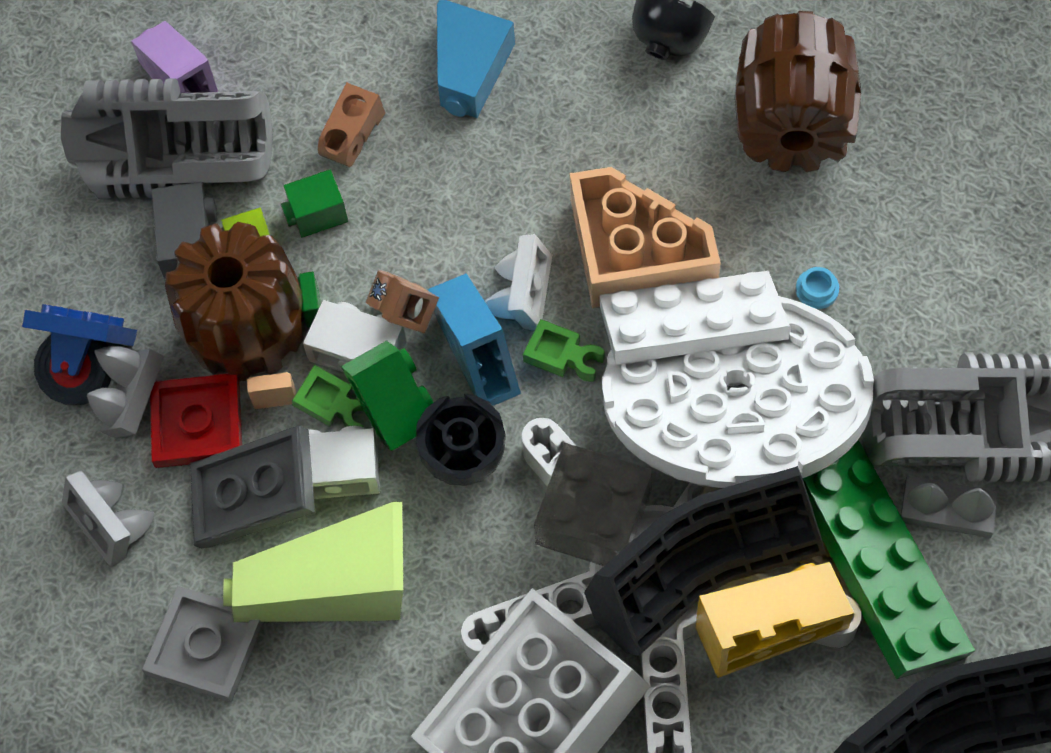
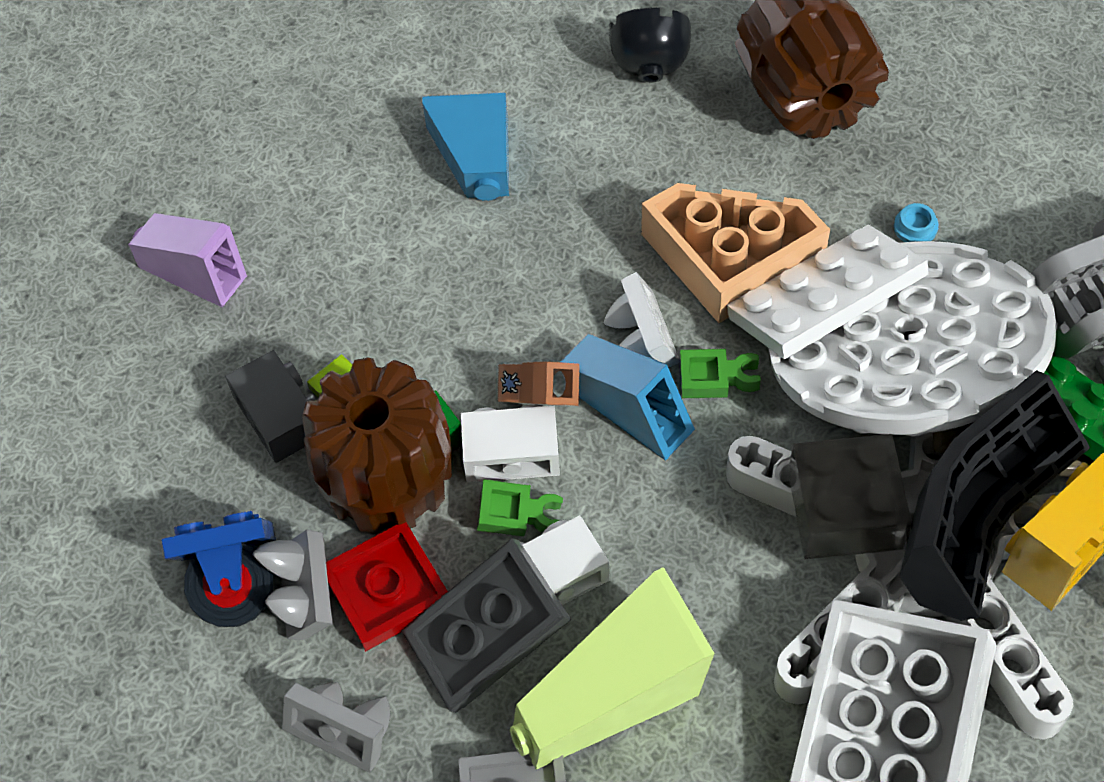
camera: 25 degrees left, 5 degrees down
(156, 137) = (209, 322): light grey connector -> none
(271, 390) = (451, 523): light nougat tile -> none
(314, 204) = (396, 329): green brick -> none
(350, 124) = (392, 243): nougat leg -> none
(388, 392) = (579, 475): green brick -> none
(460, 439) = (674, 489): black cylinder -> none

